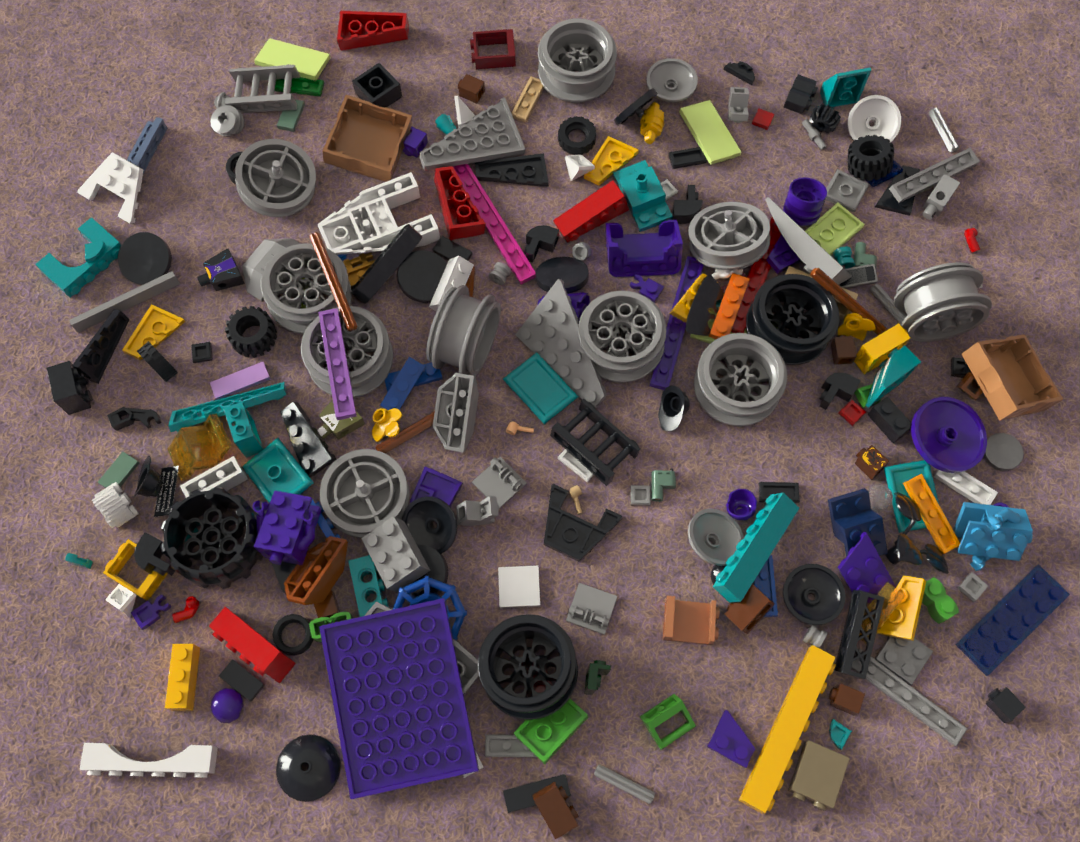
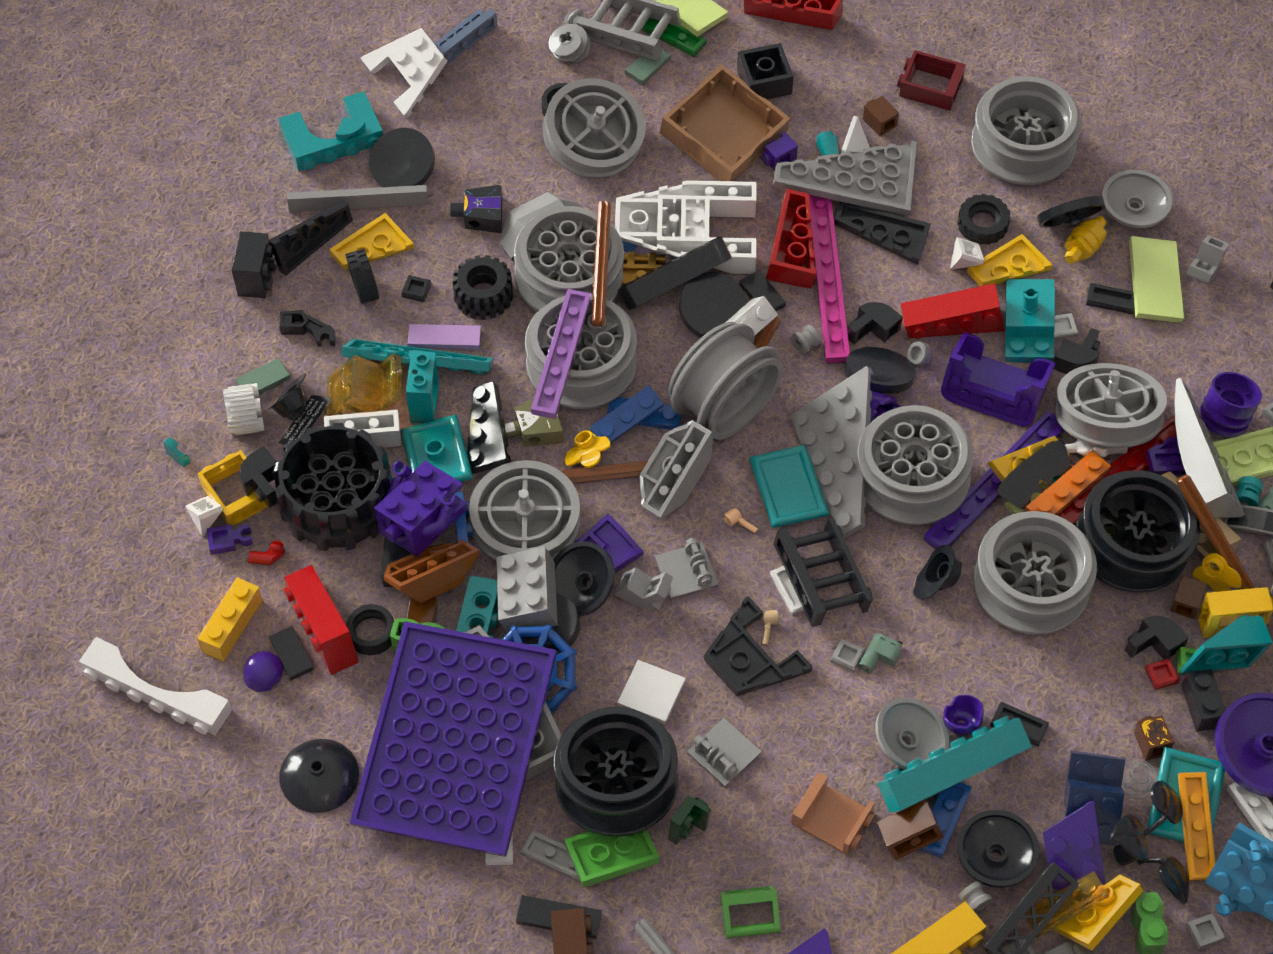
camera: 25 degrees right, 10 degrees down
(528, 99) = (944, 155): tan tile -> none
(648, 289) = (979, 430): dark purple plate -> none
(741, 70) = (1237, 223): black tile -> none
(763, 119) = (1234, 290): red tile -> none

